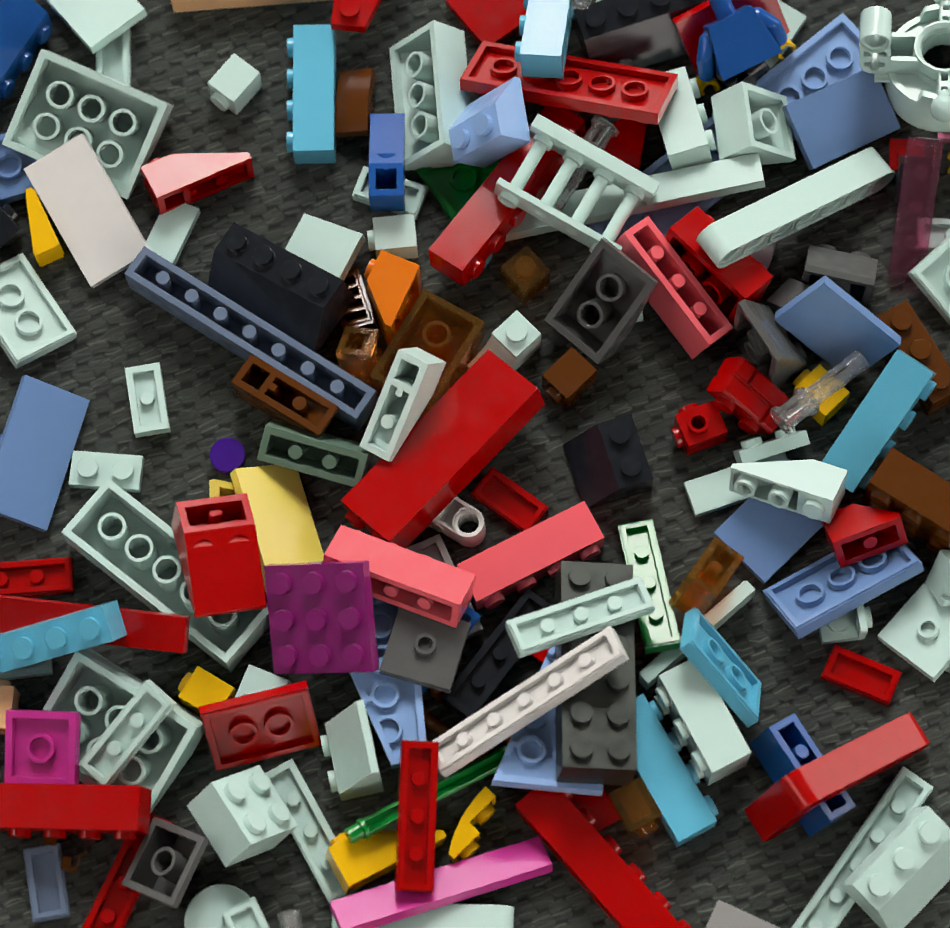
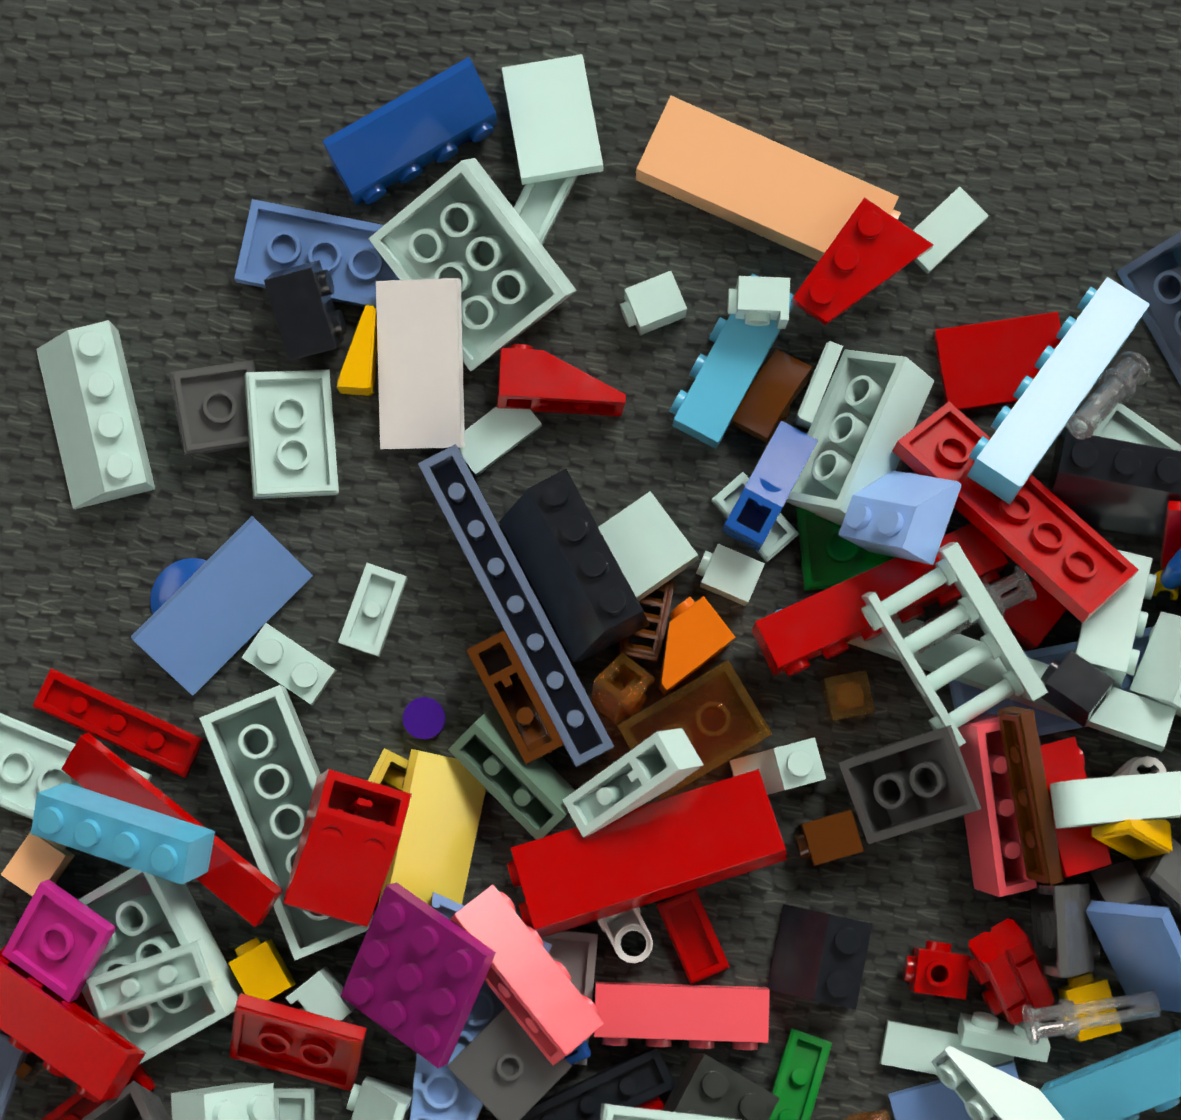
camera: 25 degrees right, 10 degrees up
(309, 36) = (760, 300): none -> light aqua brick
(383, 77) = (818, 385): none -> light aqua tile
(680, 173) = (1076, 687): none -> black brick
(688, 258) = (1030, 794): none -> reddish brown tile
(778, 250) = (1136, 837): none -> yellow slope

